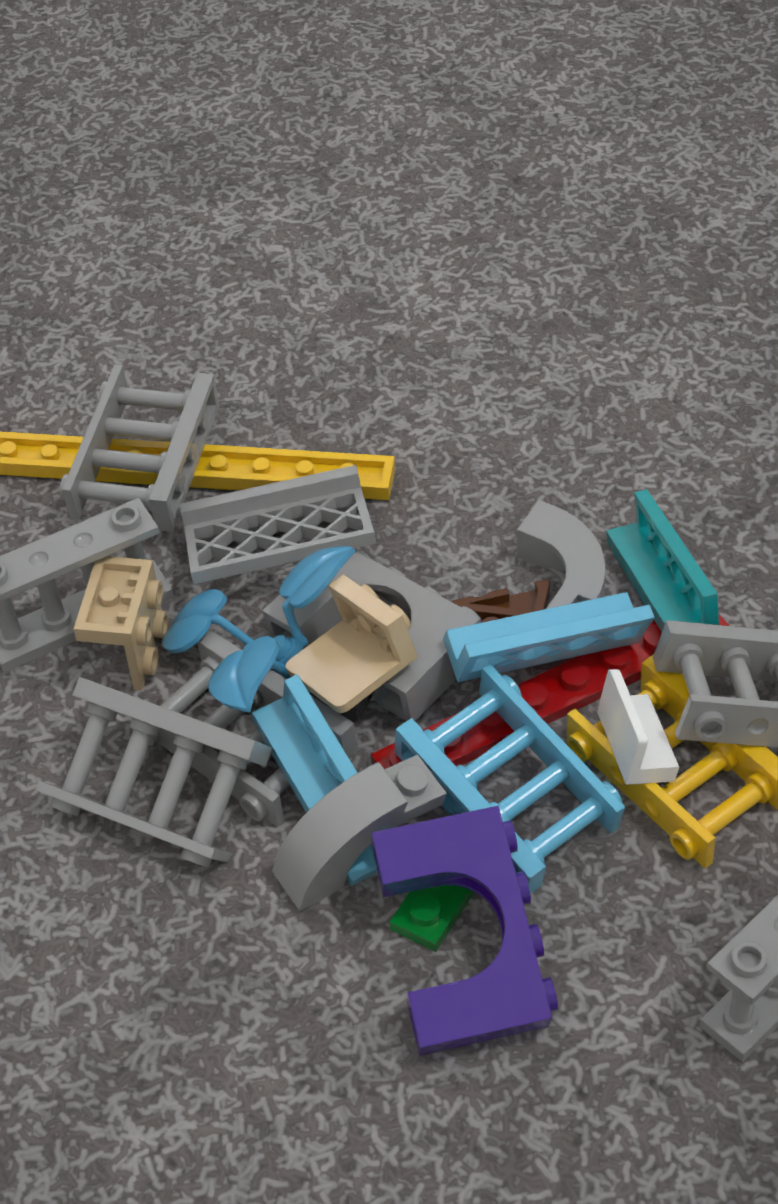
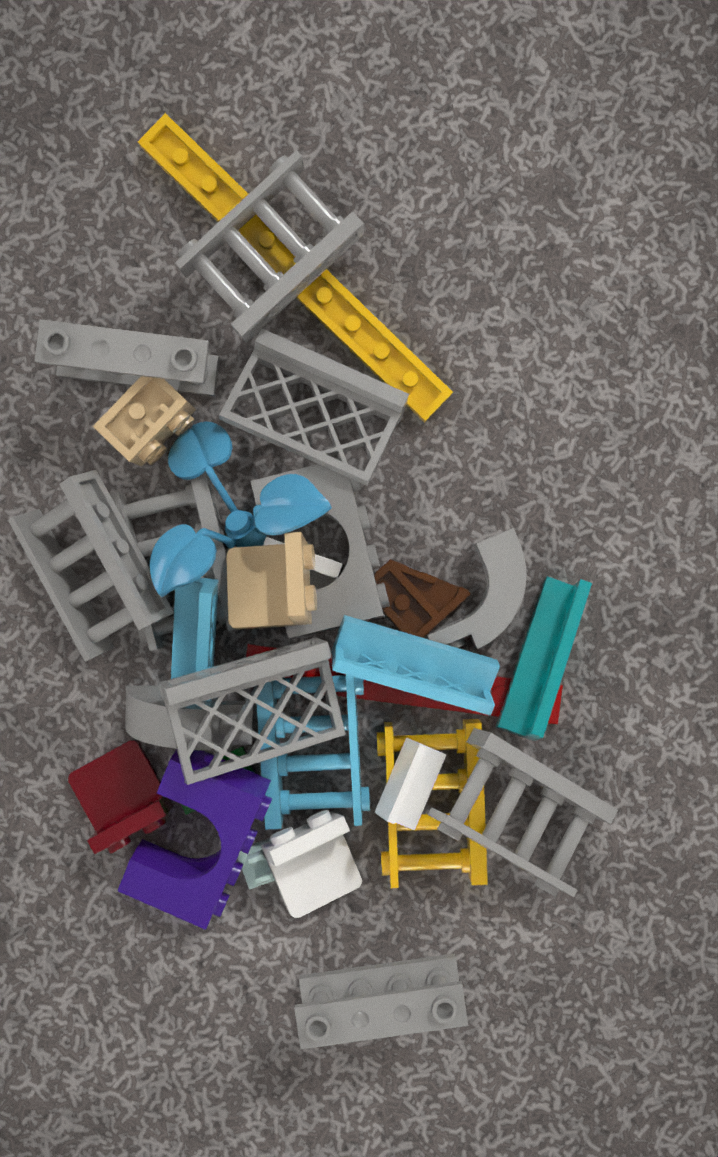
camera: 35 degrees right, 40 degrees up
(348, 972) = (120, 796): none -> dark red bracket
(392, 716) = (243, 674): none -> light grey fence
(562, 939) = (256, 866): none -> light aqua tile
(603, 888) = (312, 863): none -> white bracket

